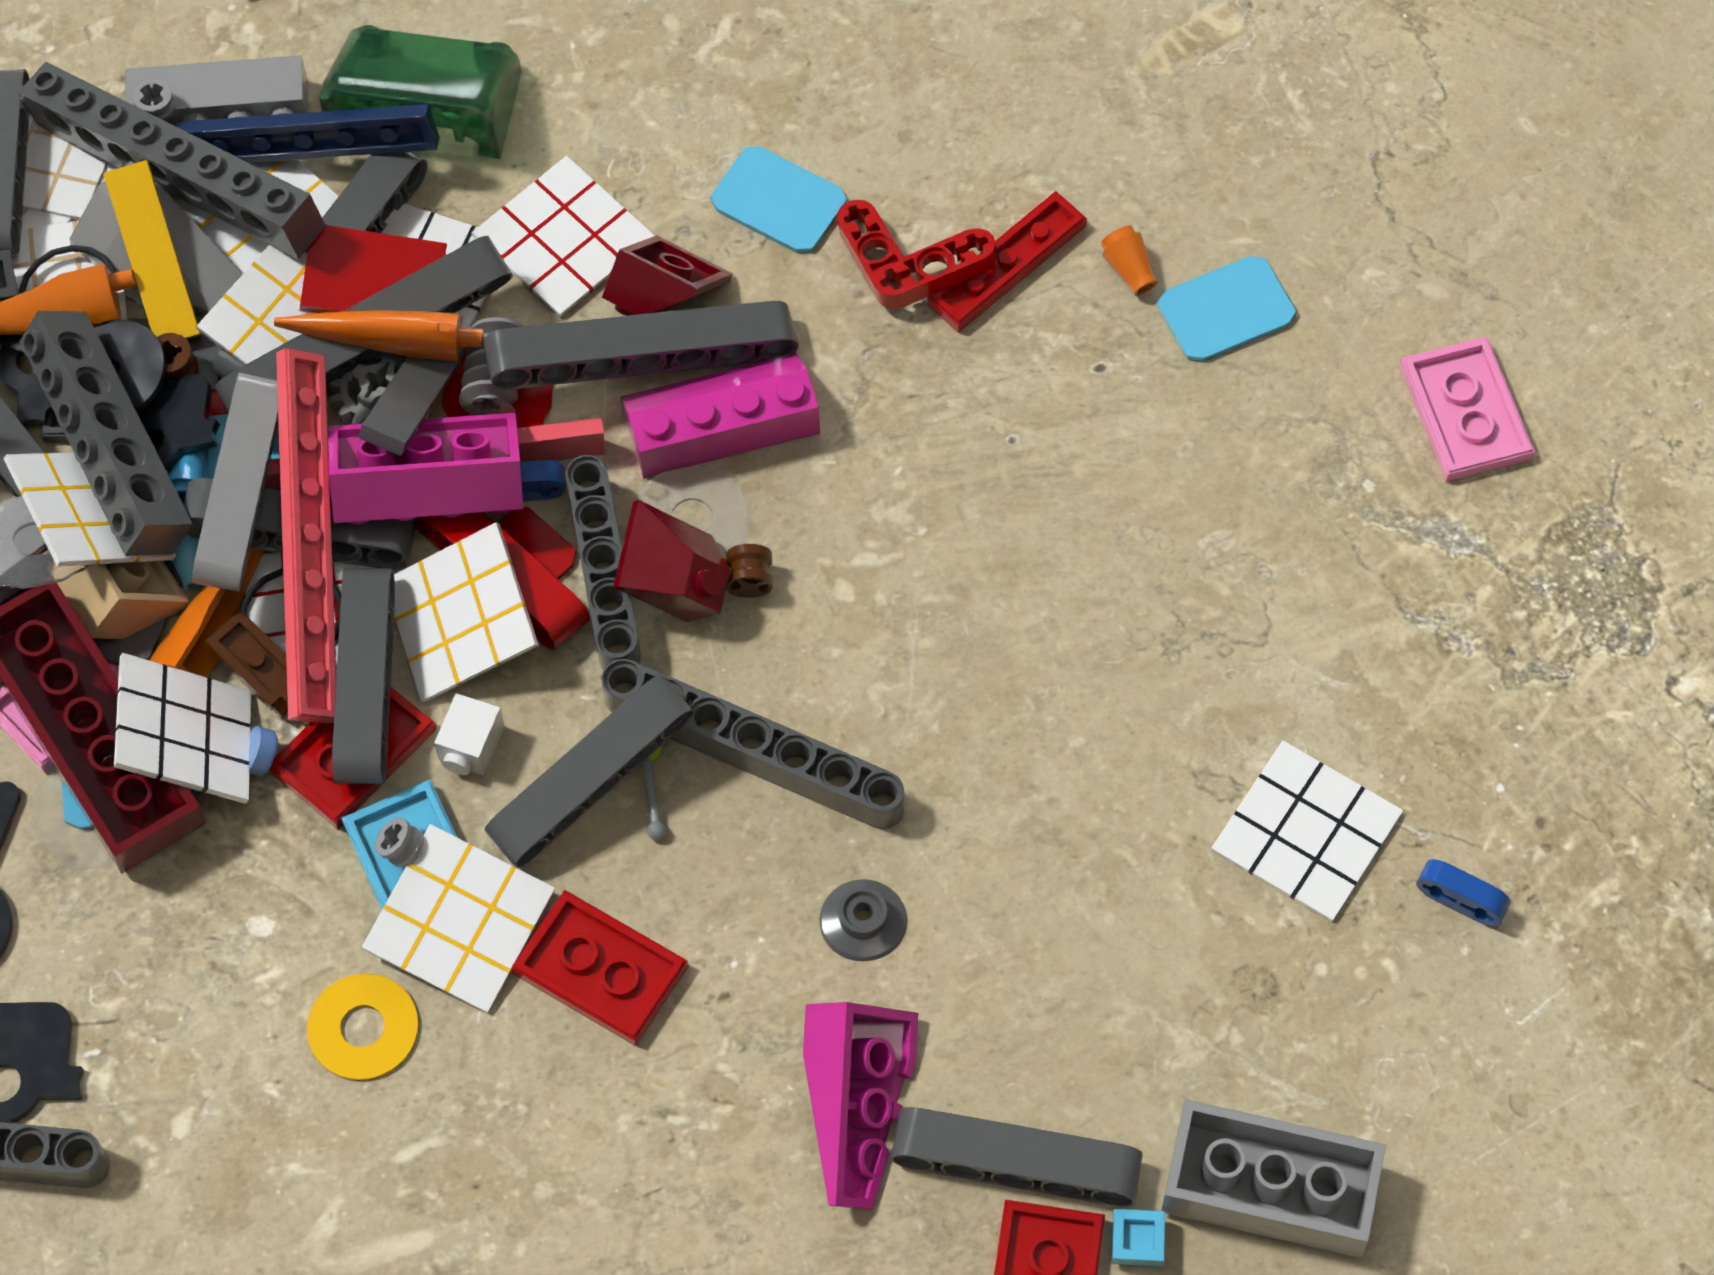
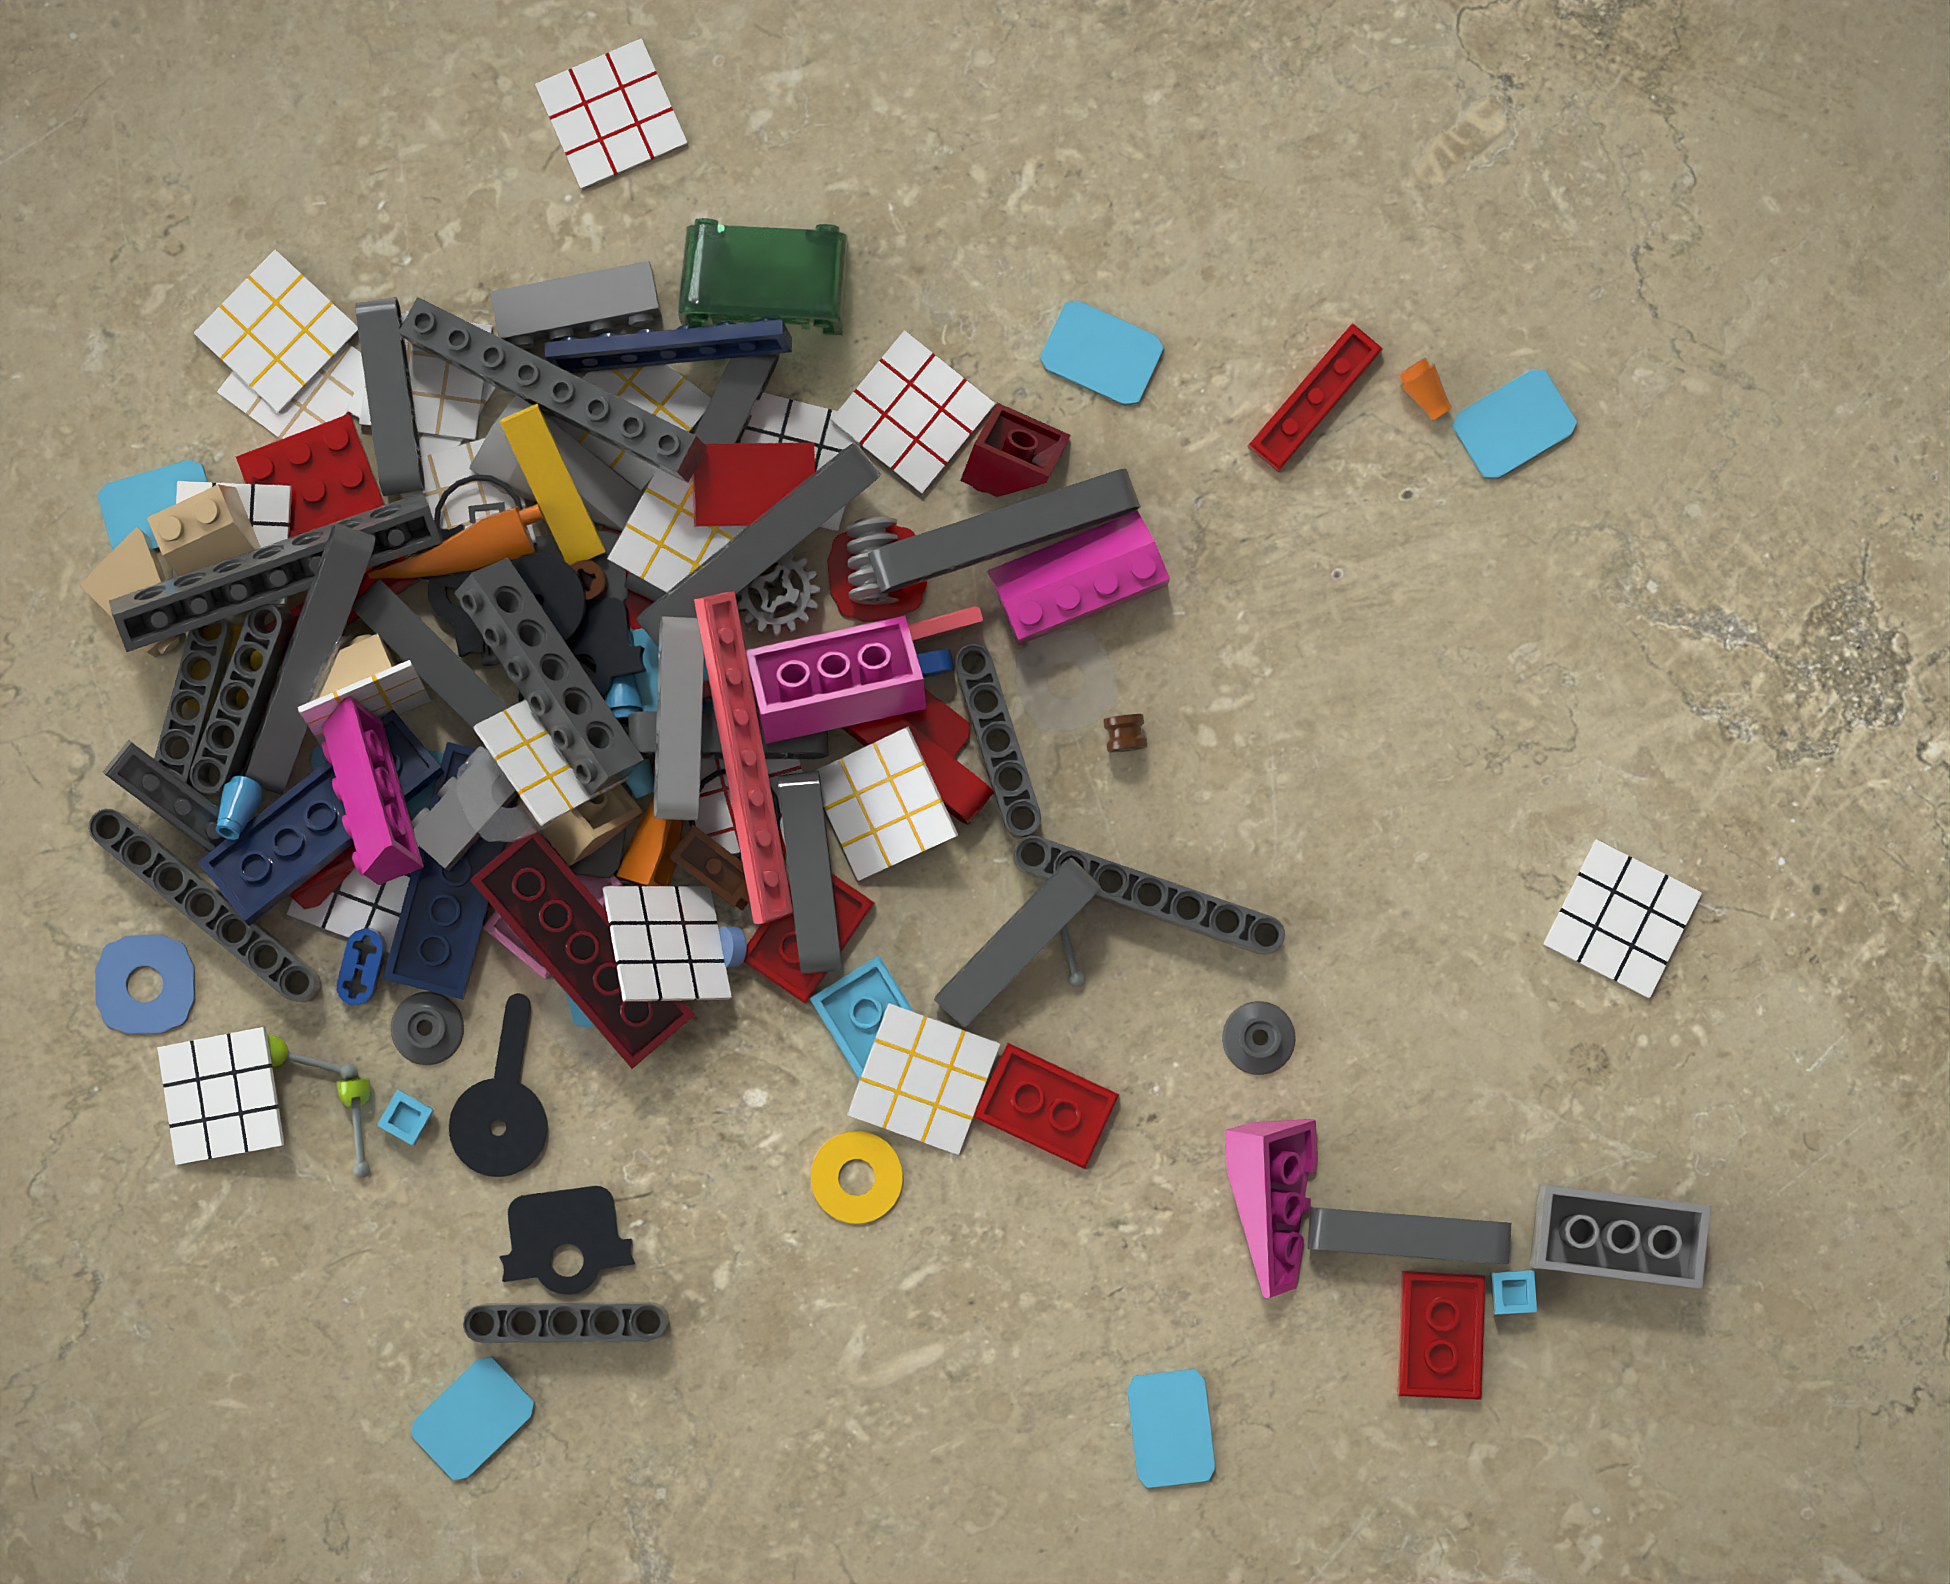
camera: 10 degrees left, 20 degrees up
(153, 88) = (536, 323): light grey bush -> none
(390, 331) = (784, 552): orange piece -> none
(399, 842) = (856, 1024): light grey bush -> none
(407, 402) = (813, 610): dark grey tile -> none
(469, 735) = (906, 915): white brick -> none
(671, 565) = (1061, 739): dark red slope -> none
(898, 268) = (1217, 419): red beam -> none
(1463, 892) = (1757, 966): blue beam -> none
(1466, 409) = (1733, 504): bright pink tile -> none

